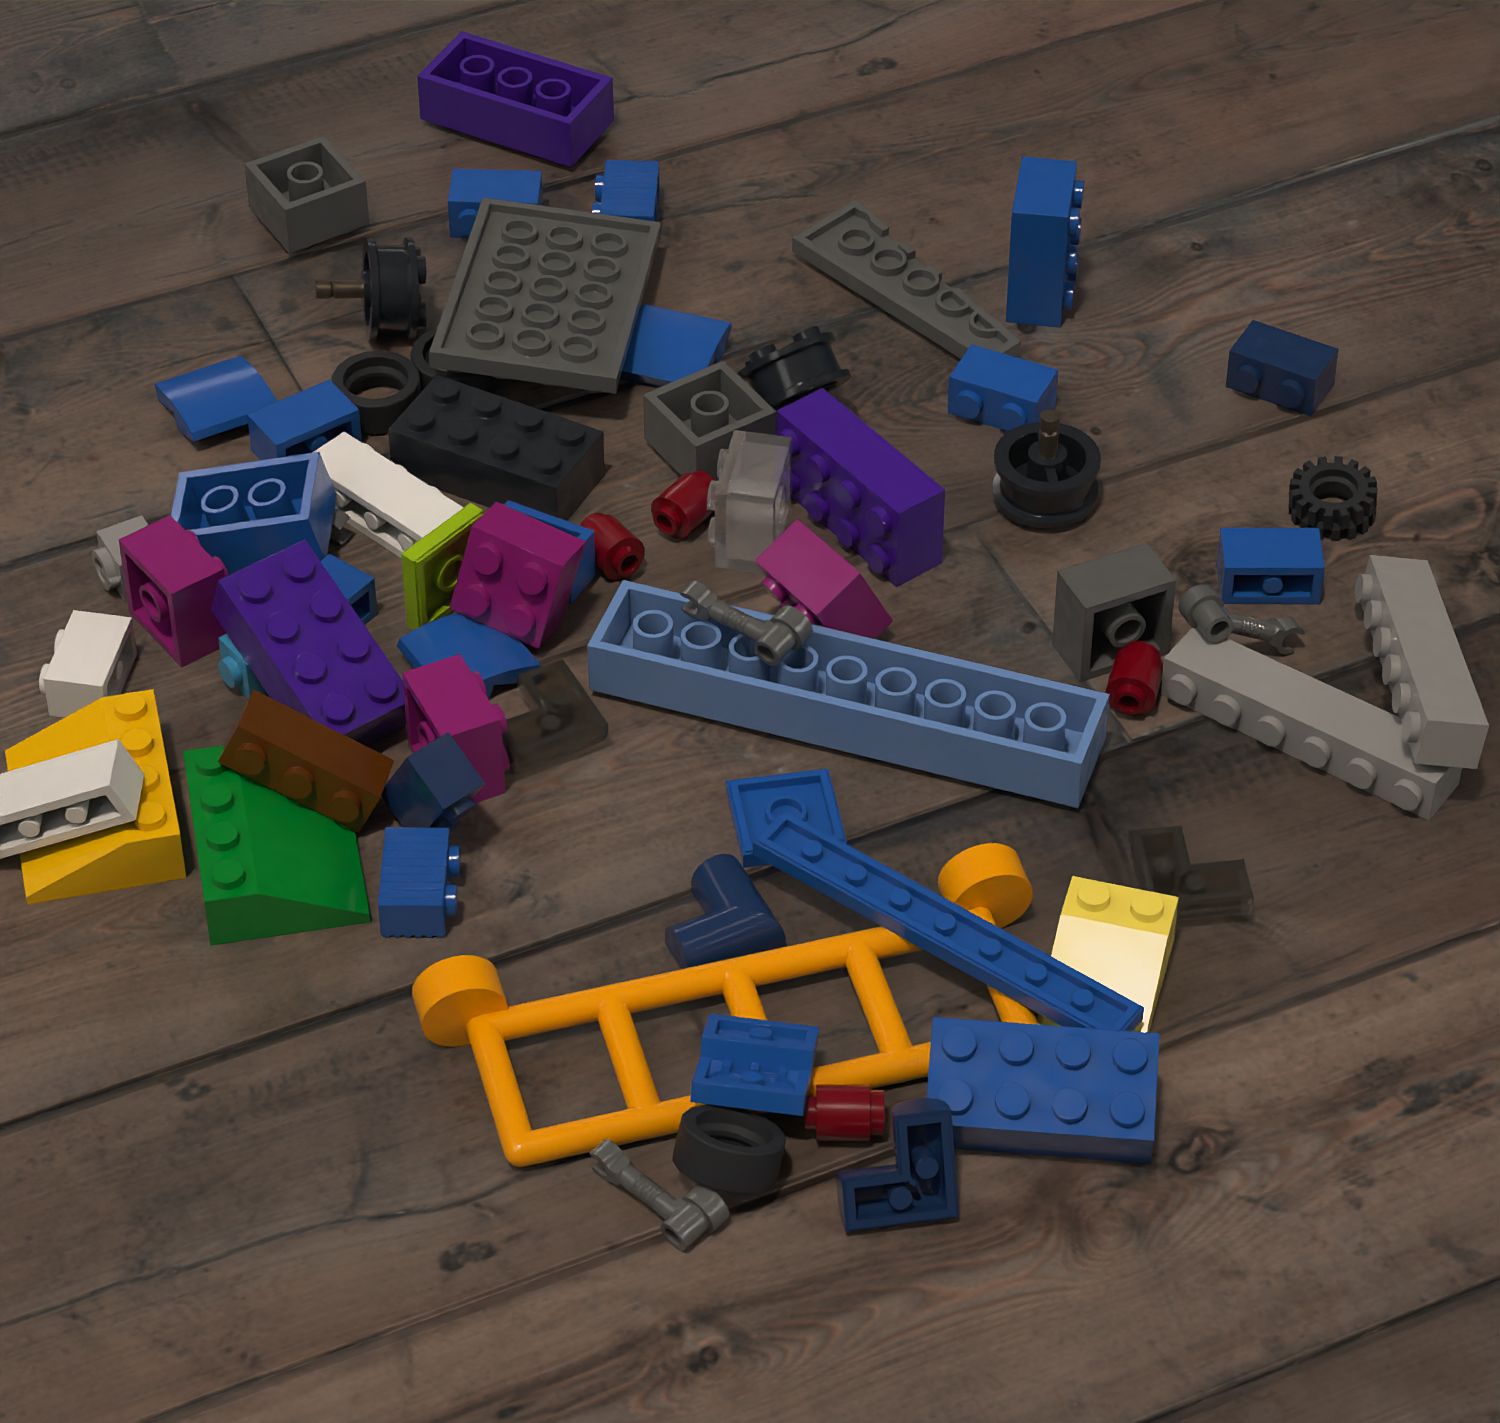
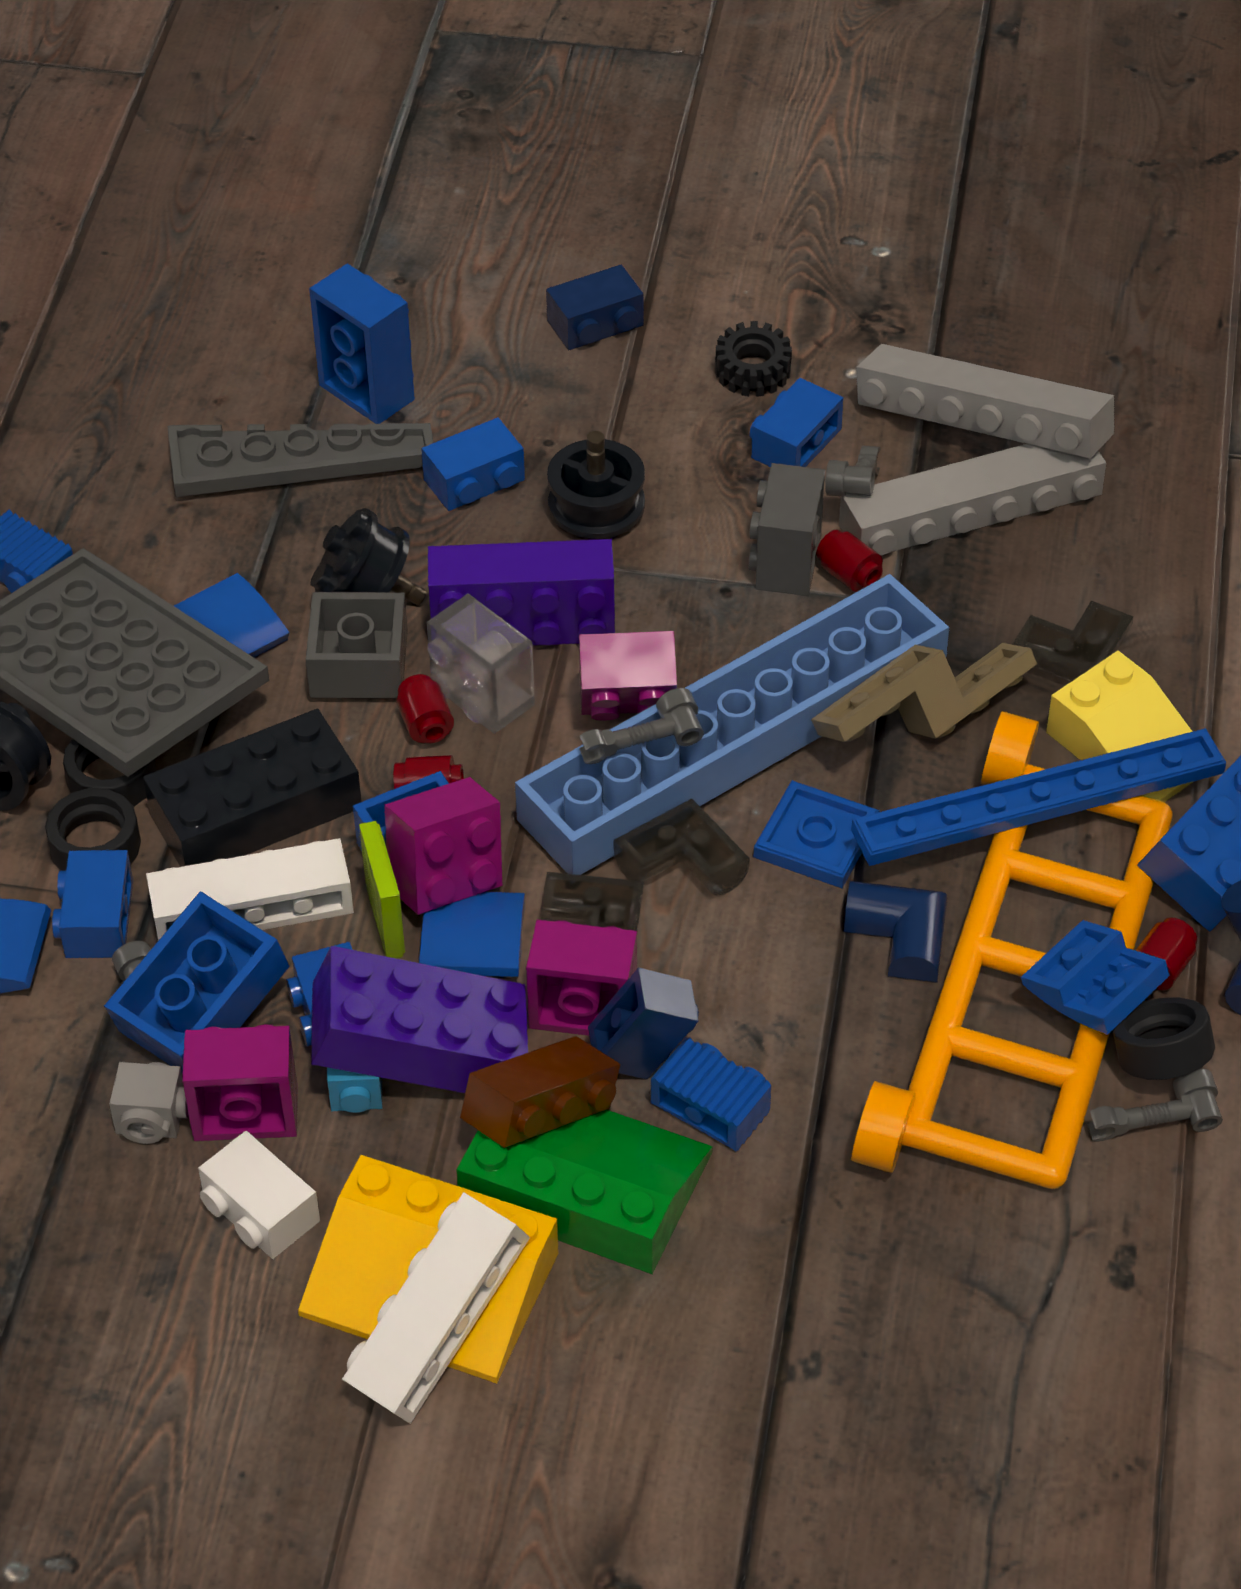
camera: 55 degrees left, 5 degrees up
(685, 734) = (684, 836): none -> clear smoke brick
(999, 795) = (924, 692): none -> dark tan bracket

